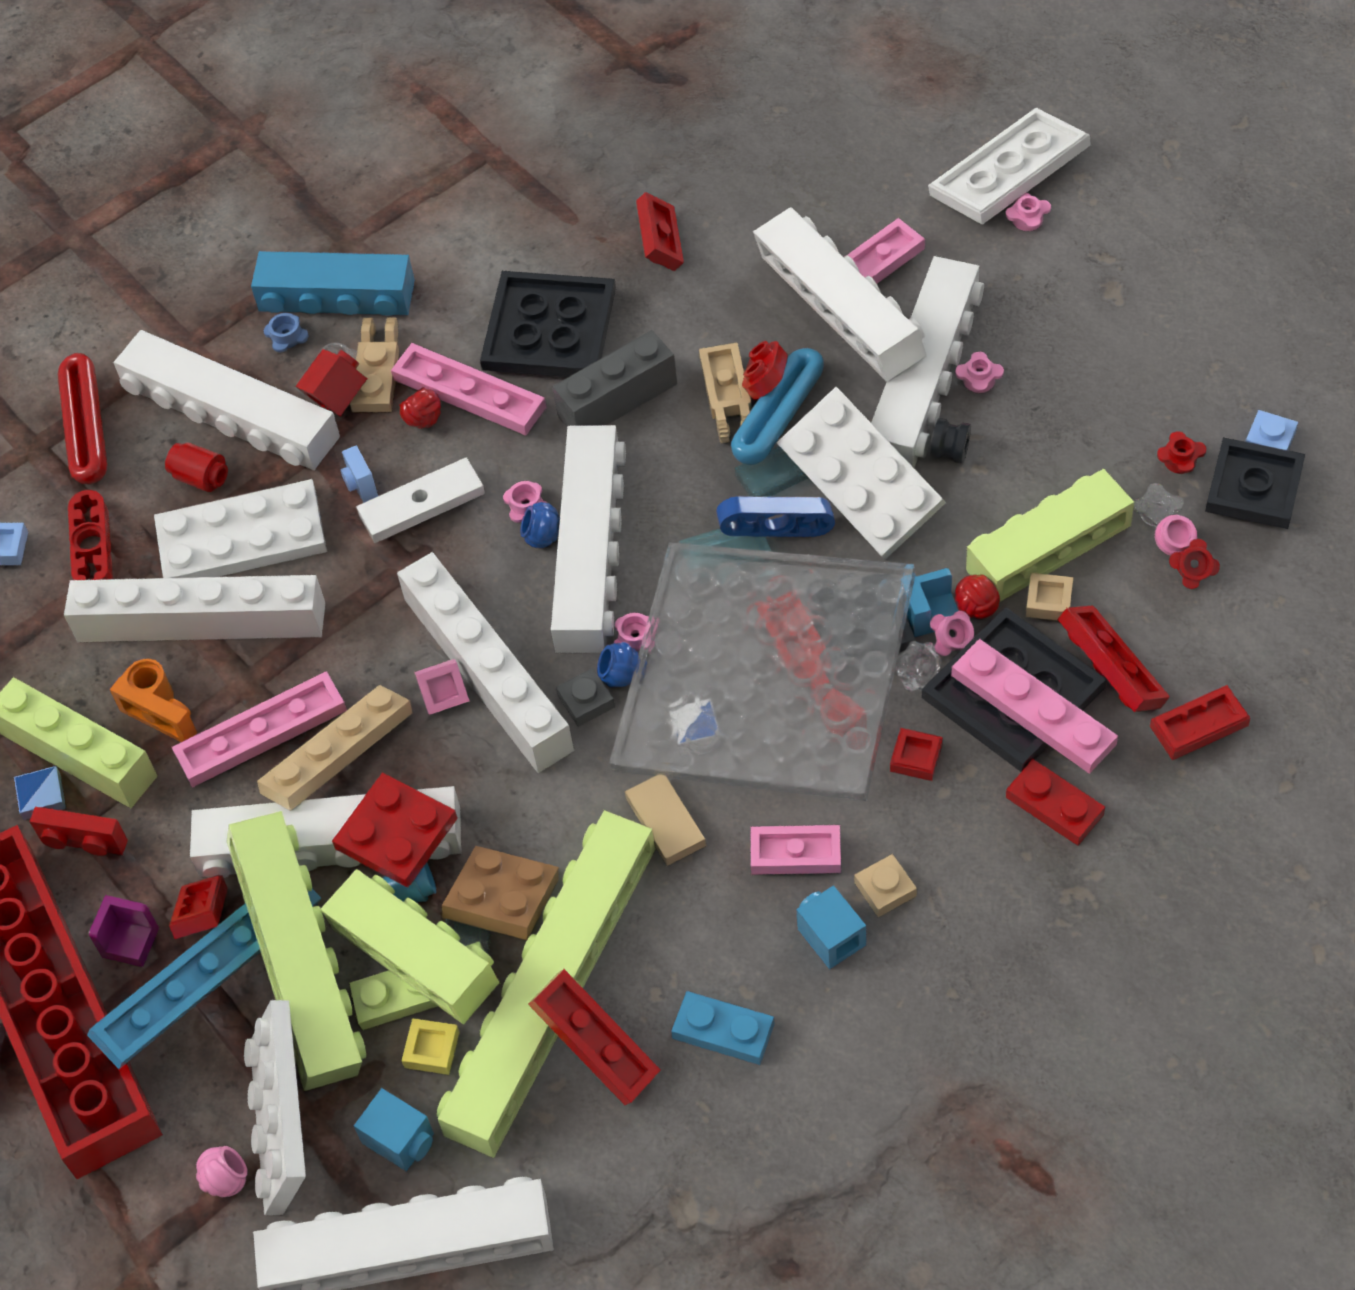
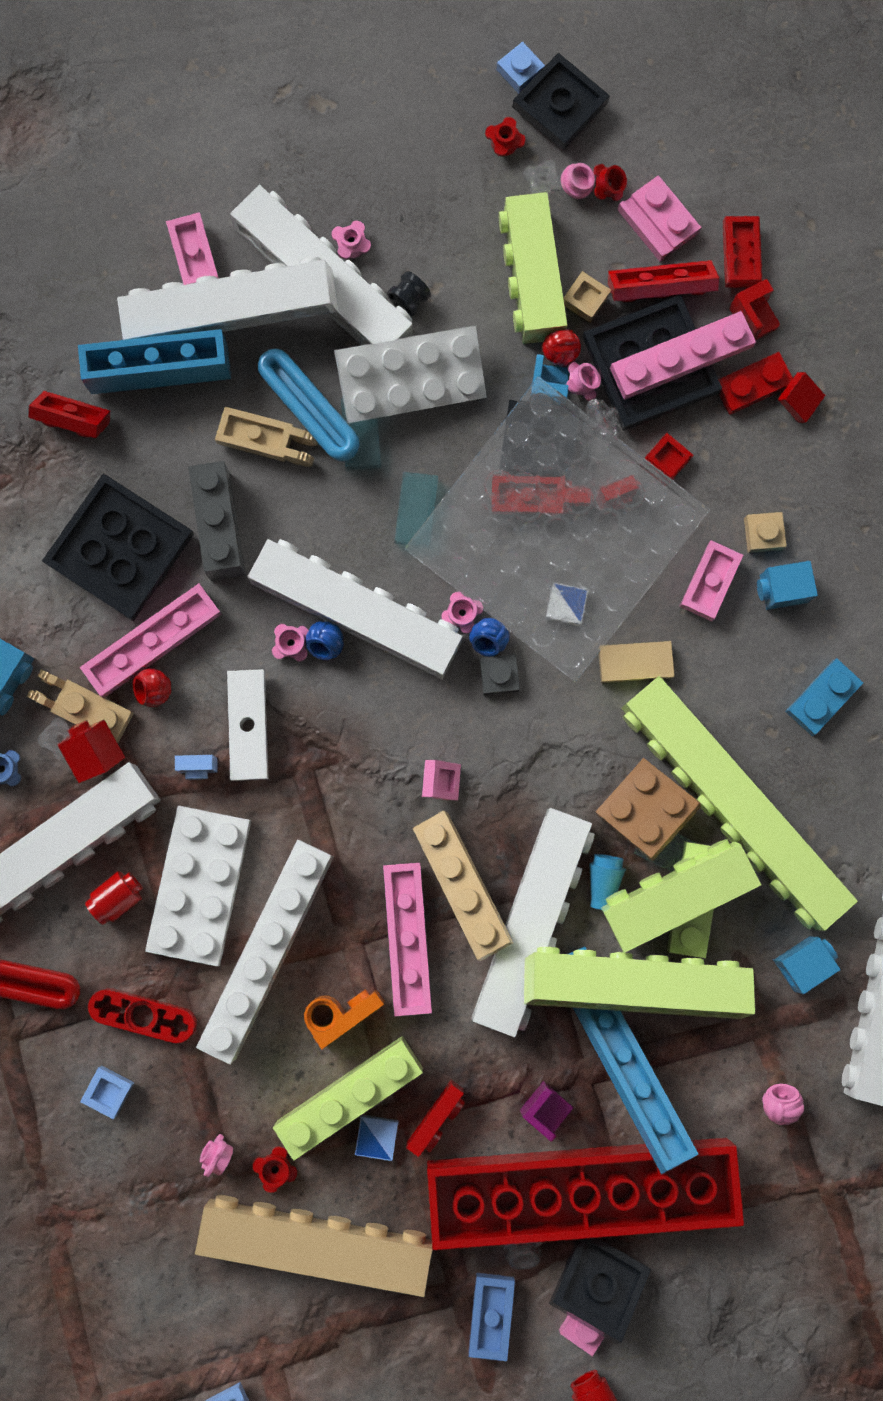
camera: 75 degrees left, 25 degrees up
(198, 906) = (559, 1045): red plate -> none
(276, 1104) = (764, 1046): white plate -> none
(395, 829) = (572, 868): red plate -> none
(430, 1046) = (749, 913): light yellow plate -> none
(486, 662) = (436, 737): white brick -> none
(594, 1037) = (808, 791): red plate -> none
(748, 268) = (154, 361): none -> dark azure brick
(750, 516) = (418, 457): blue beam -> none
(764, 369) = (261, 394): red plate -> none
(1009, 165) = (155, 110): white tile -> none
(1028, 212) = (211, 130): bright pink plate -> none
(1064, 851) = (801, 397): none -> red tile
(1137, 763) = (756, 308): none -> red panel
(1188, 631) = (659, 218): none -> bright pink plate

